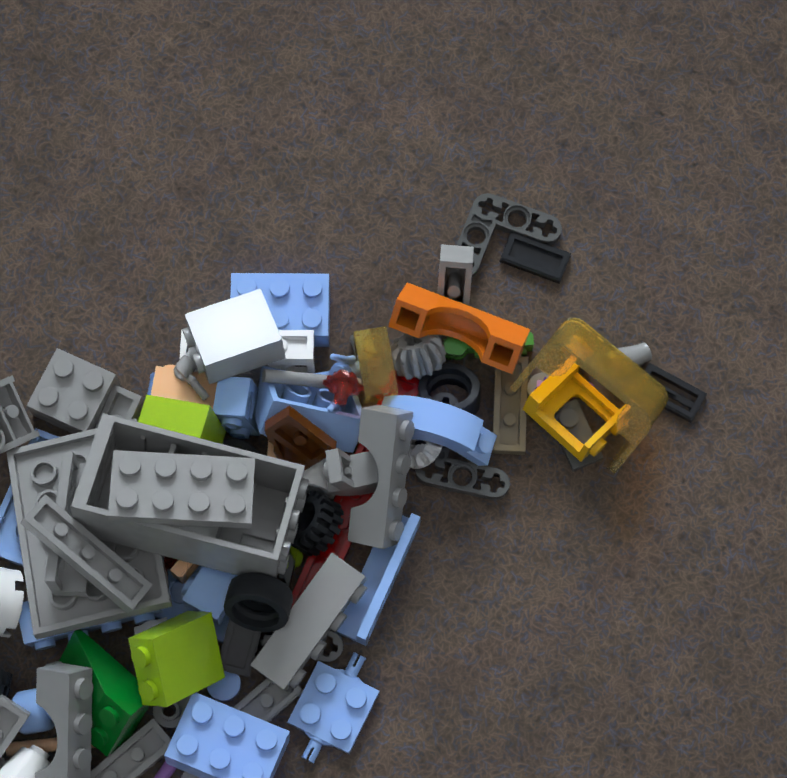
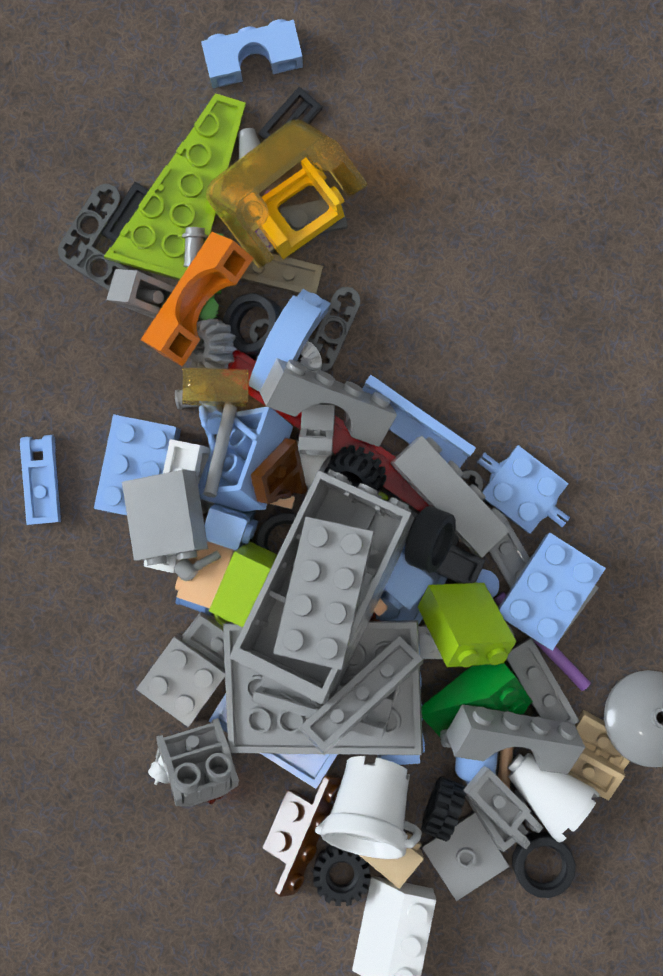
camera: 80 degrees left, 15 degrees up
(251, 221) = (40, 480): none -> light blue plate
(343, 385) = (234, 420): clear red plant -> none
(520, 316) = (194, 240): none -> light grey pin
(546, 294) = (178, 195): none -> lime wing
(719, 314) = (275, 42): none -> light blue arch

